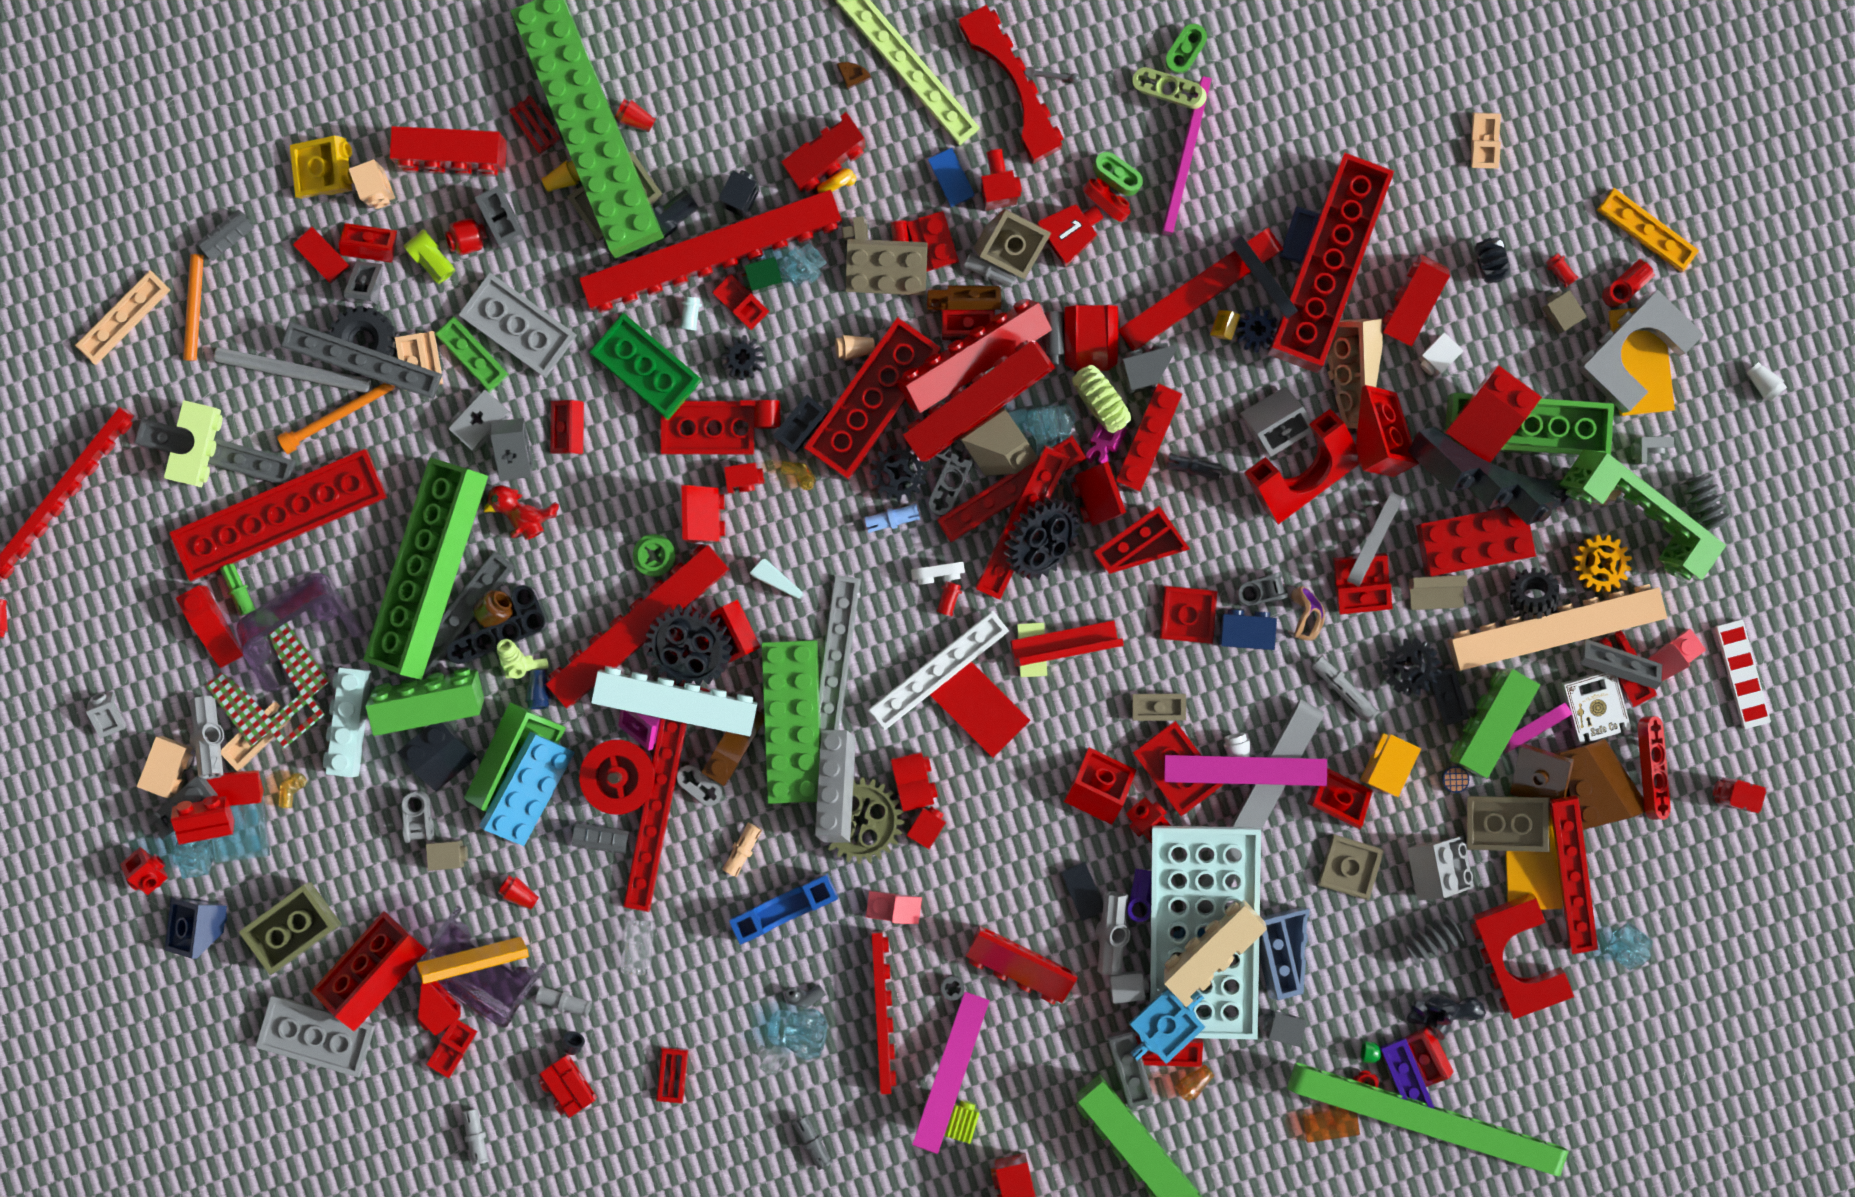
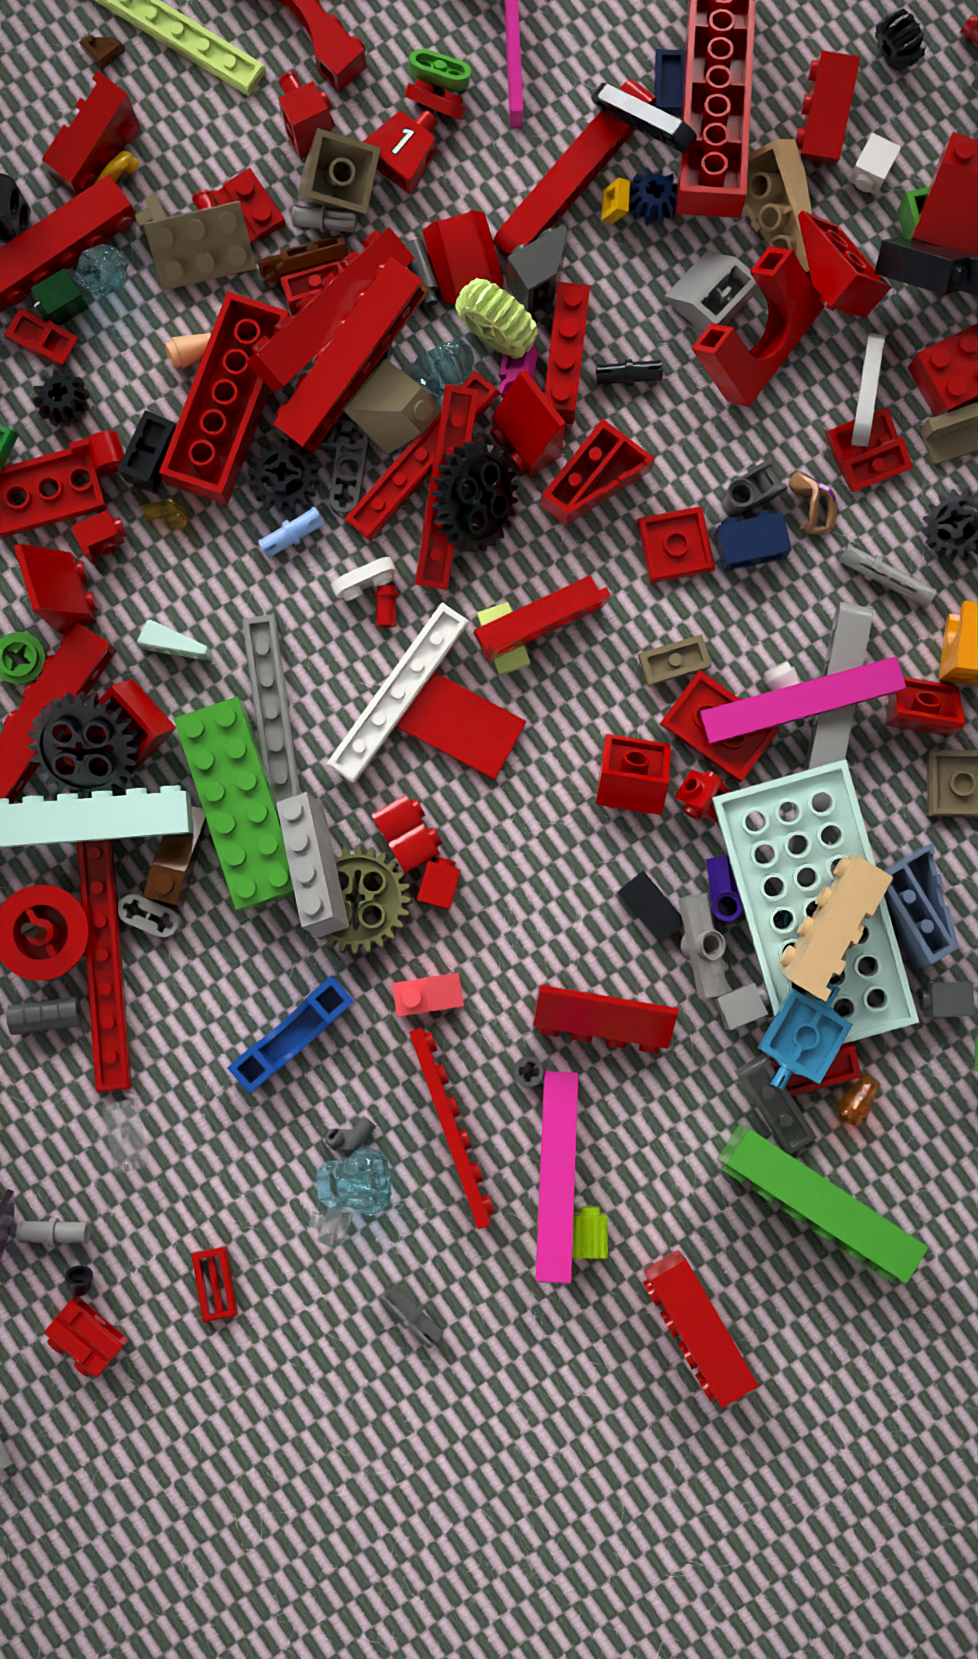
camera: 15 degrees left, 5 degrees down
(640, 727) = (55, 862): dark pink slope -> none
(742, 849) = (223, 978): light nougat pin -> none
(951, 177) = (249, 130): blue tile -> none

